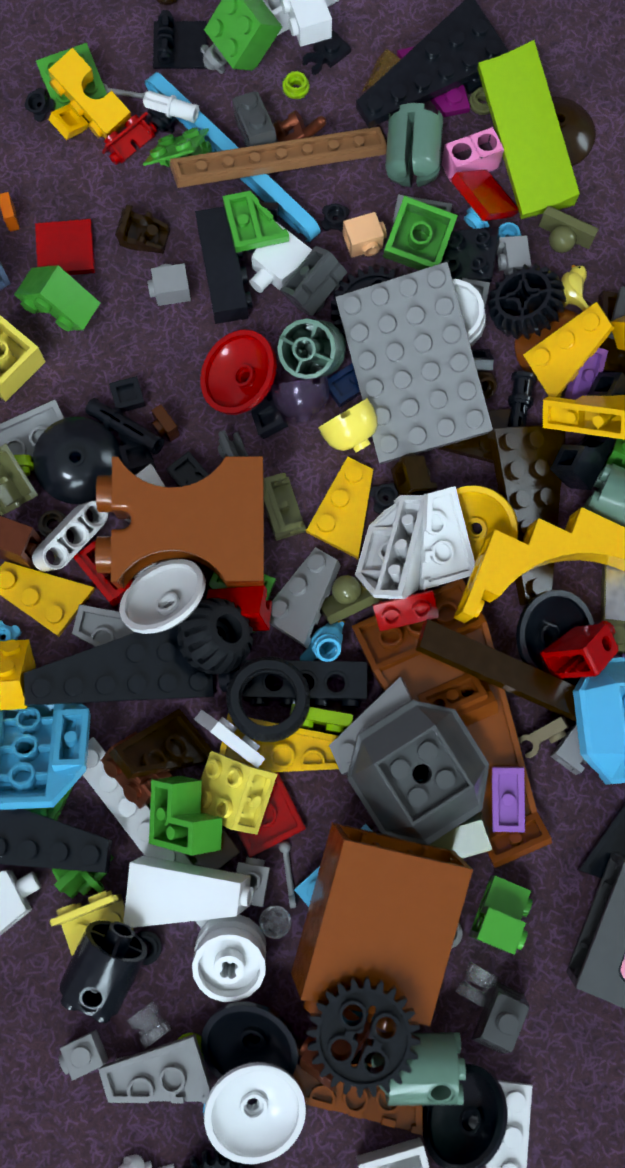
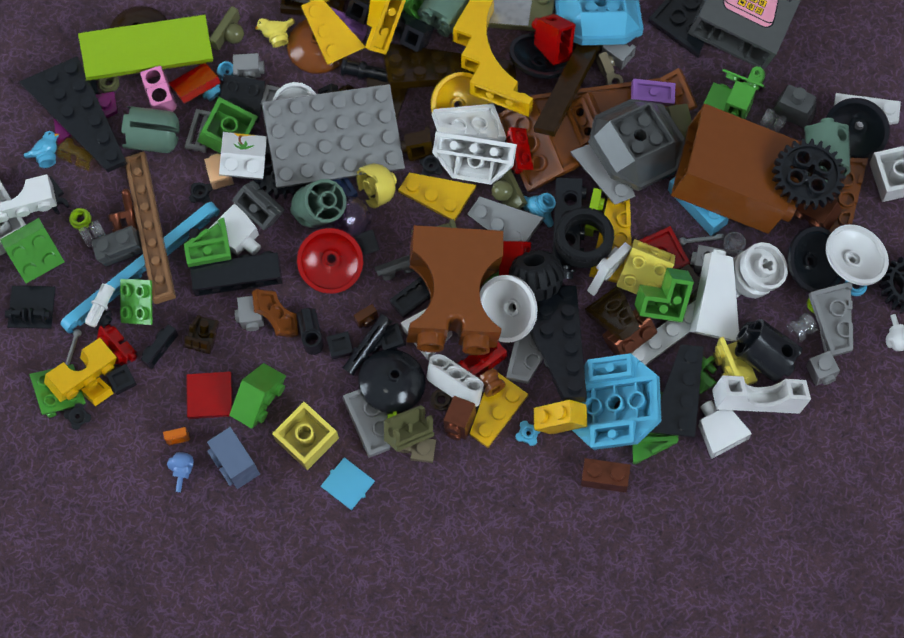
camera: 80 degrees left, 5 degrees down
(35, 960) = (783, 397): none -> white arch
(66, 582) = (491, 382): none -> dark orange wheel
(85, 147) = (121, 379): none -> black plate
(120, 181) = (164, 339): none -> black plate
(148, 356) = (310, 330): none -> black piece
(174, 301) = (268, 305): none -> dark orange tile
(213, 58) = (49, 279): light grey plate -> none
(274, 99) = (96, 229): none -> clear wheel
(373, 249) = (242, 156): none -> white slope
(384, 37) = (44, 150): none -> medium azure animal
(535, 312) = (287, 48): black gear -> none
(535, 951) = (755, 77): none -> bright green hinge

